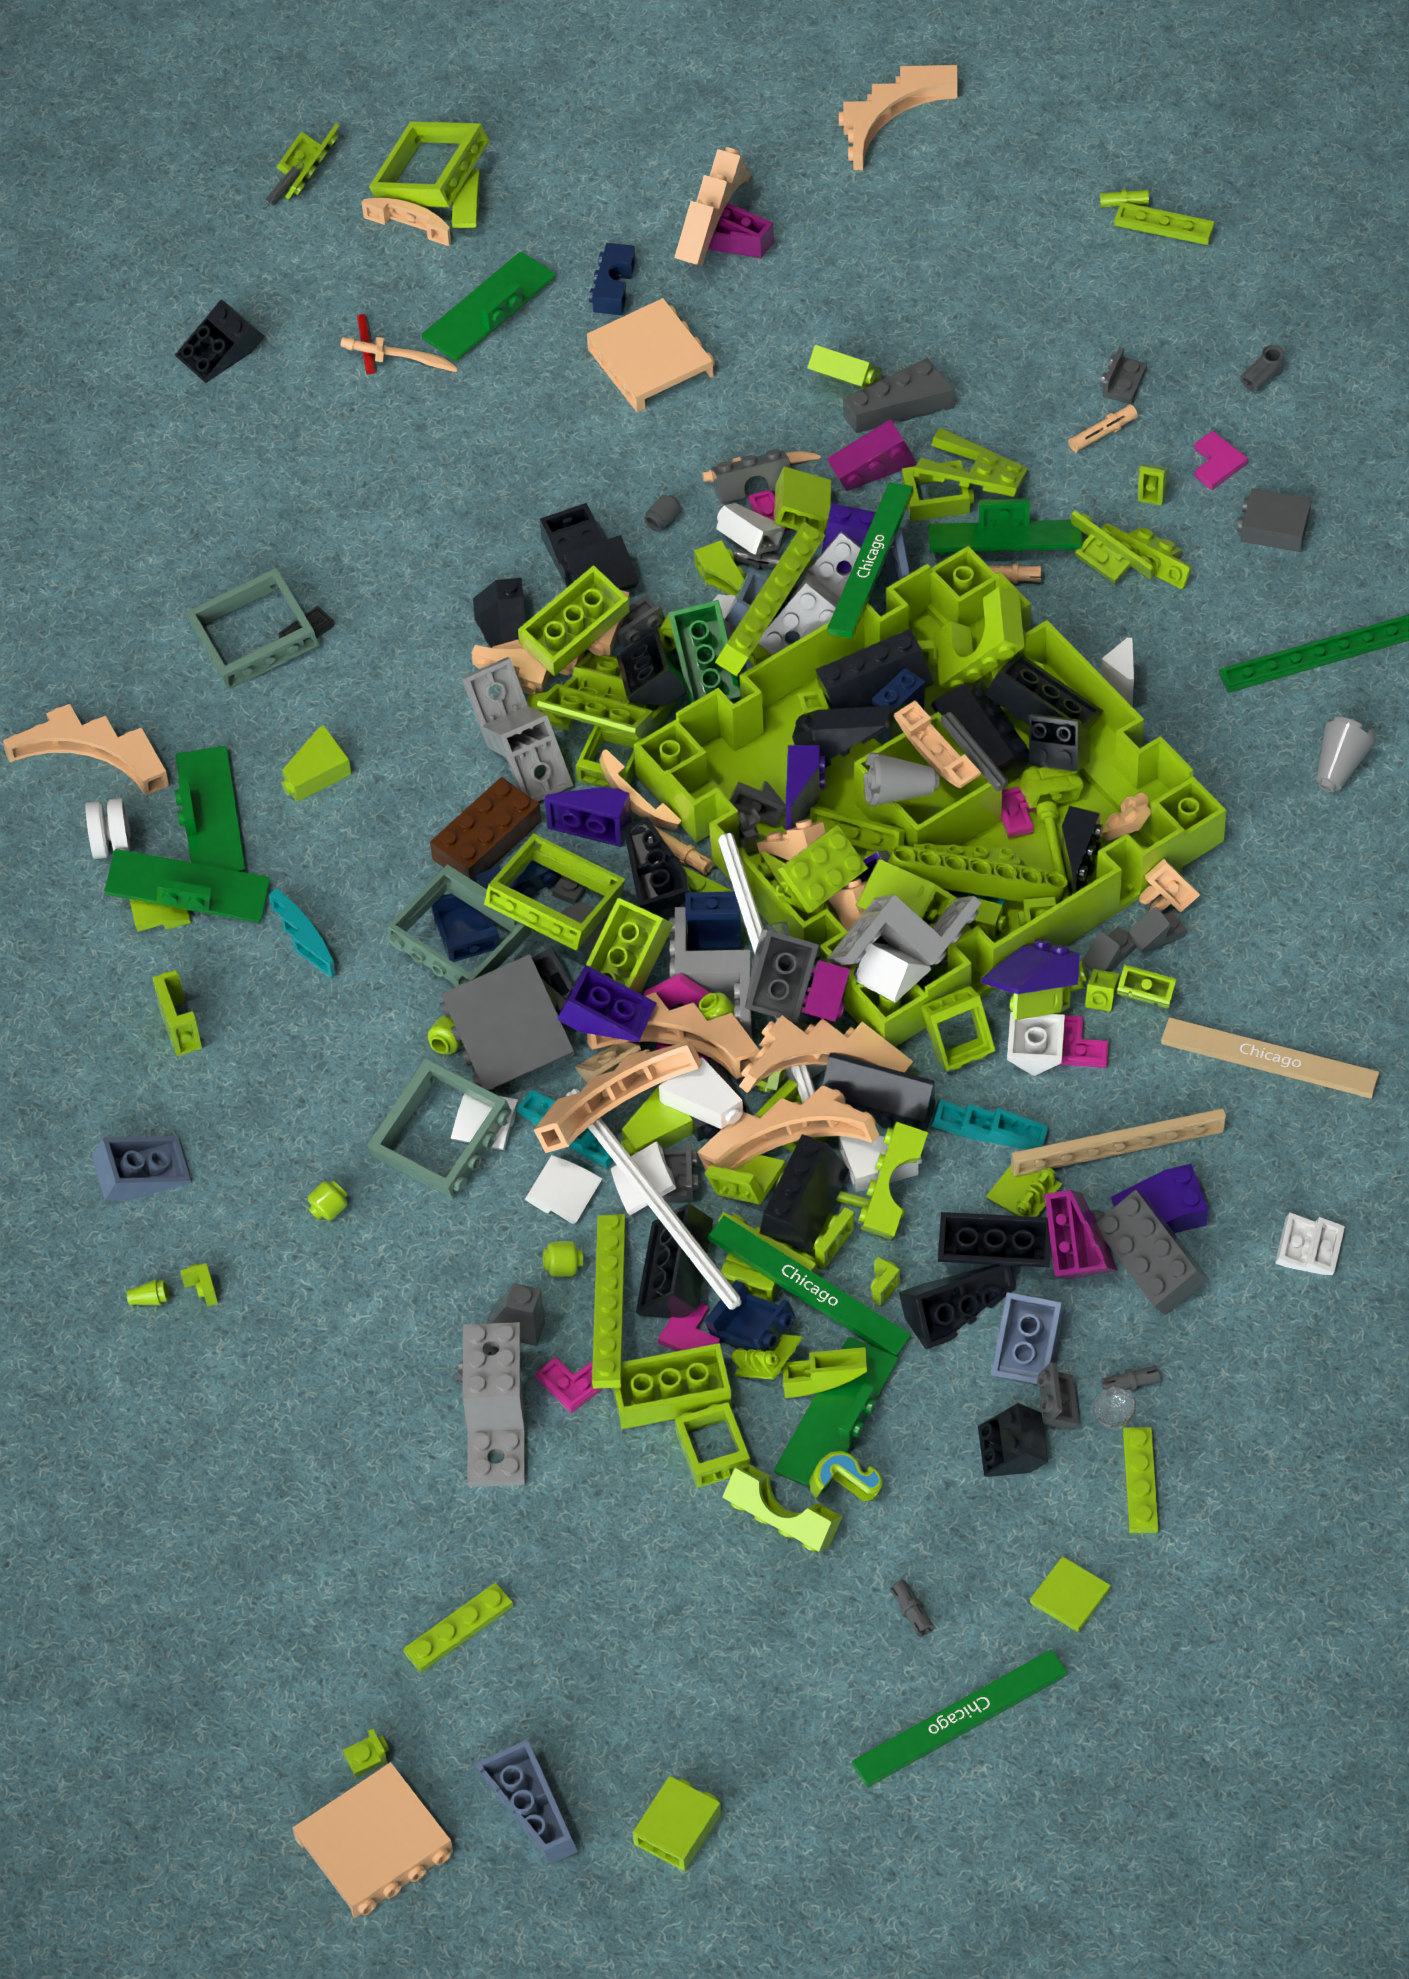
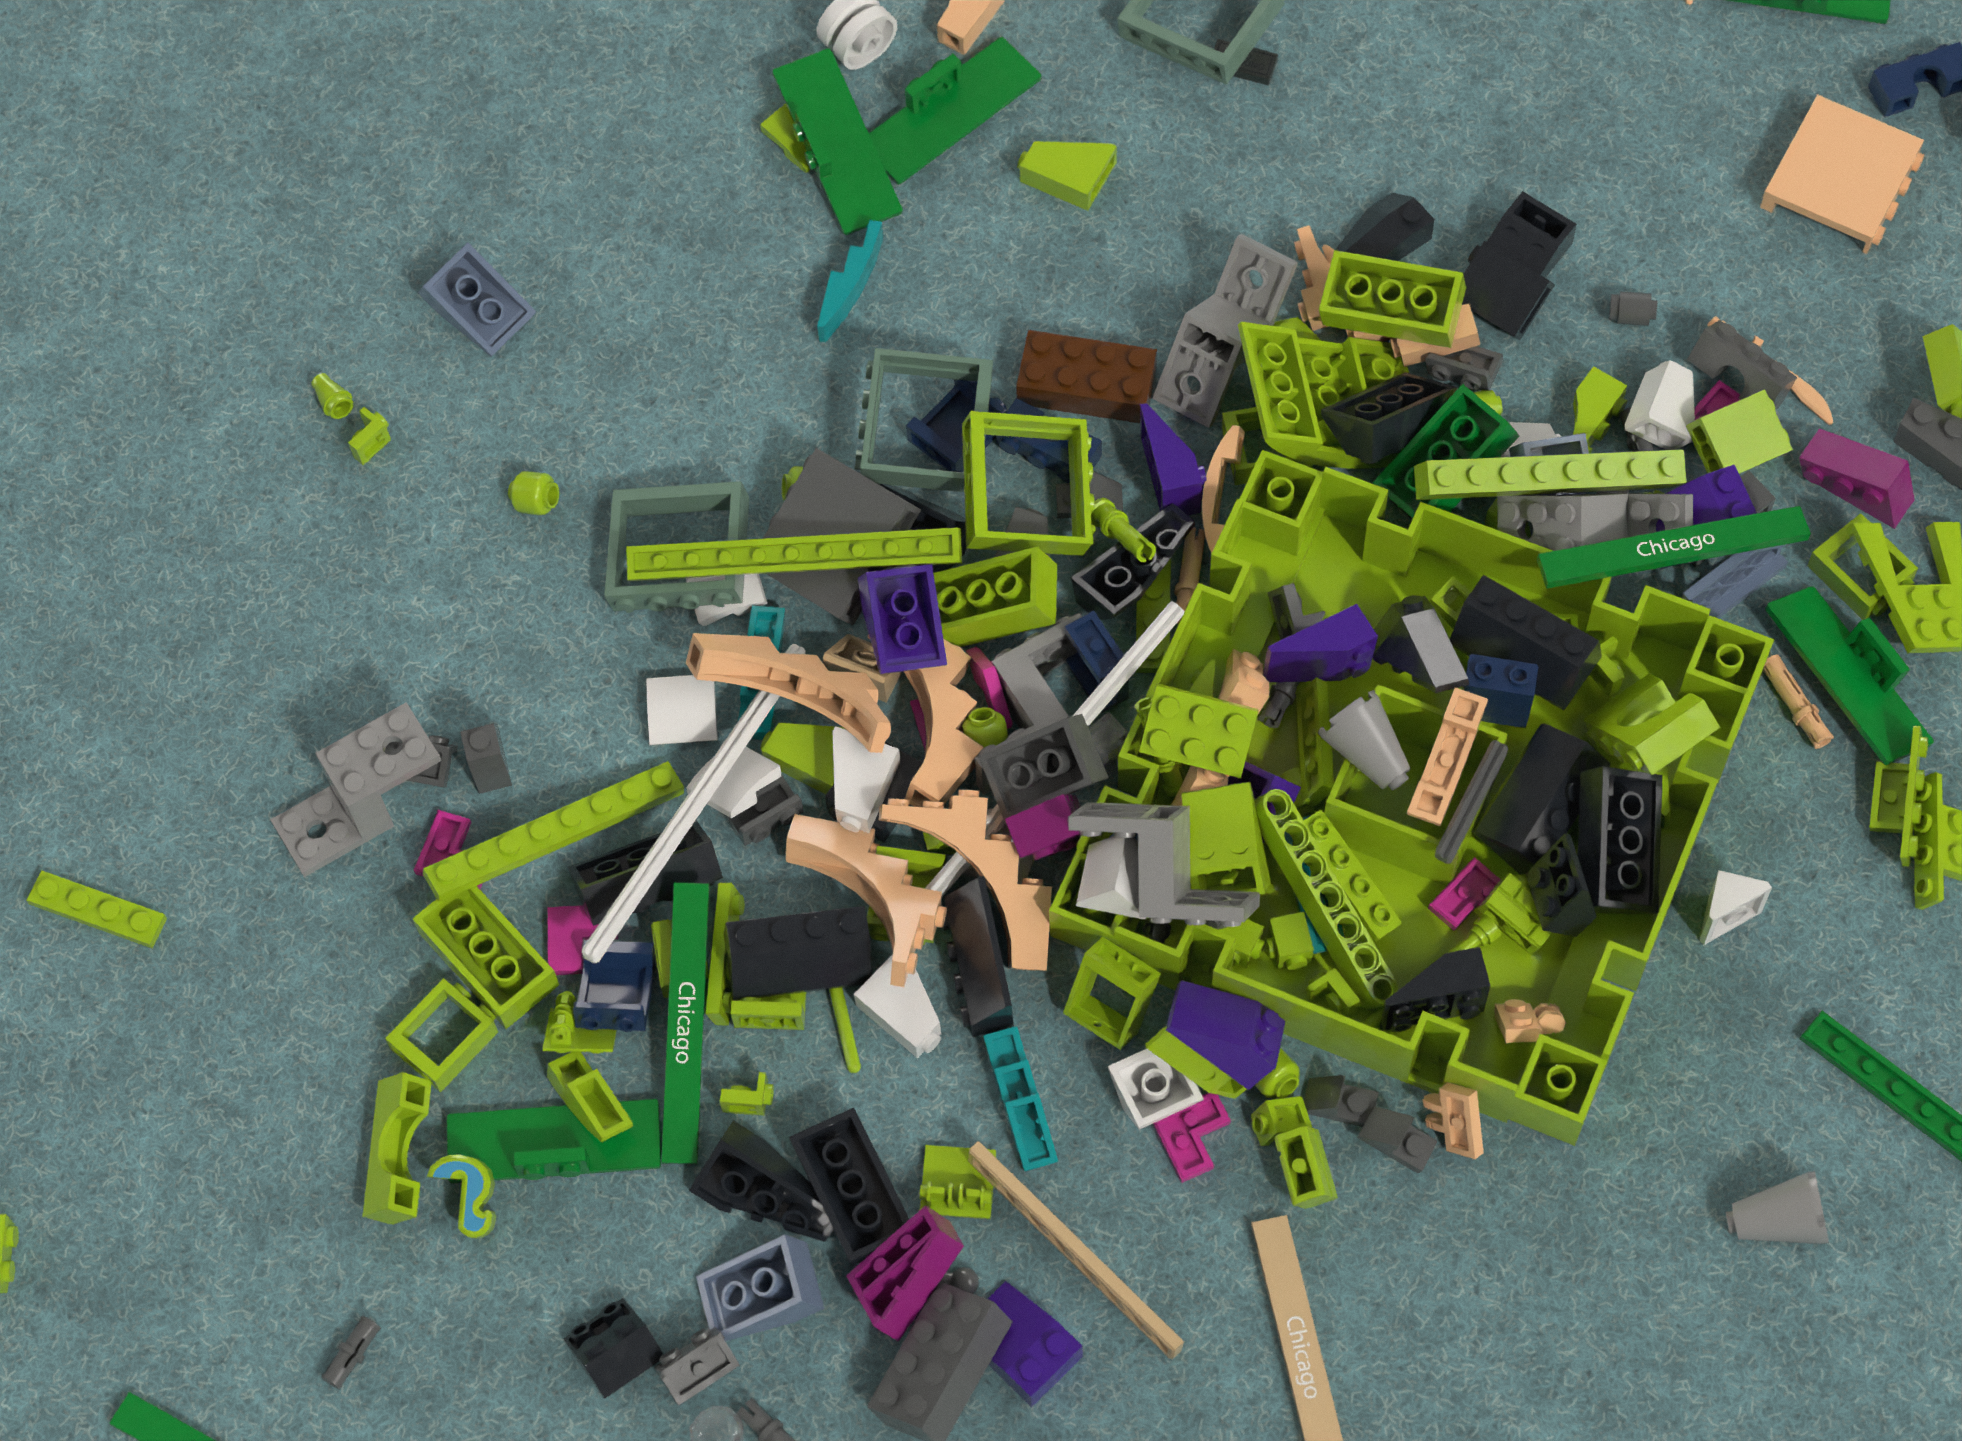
camera: 60 degrees right, 10 degrees up
(182, 1028) = (665, 216): lime panel -> none
(513, 1046) = (794, 554): none -> lime plate
(562, 1258) = (589, 756): lime head -> none
(619, 862) = (1116, 525): none -> lime pin
(748, 830) = (1238, 630): dark grey plate -> none
(748, 1182) = (792, 887): lime bracket -> none
(882, 1213) = (828, 1046): lime arch -> none

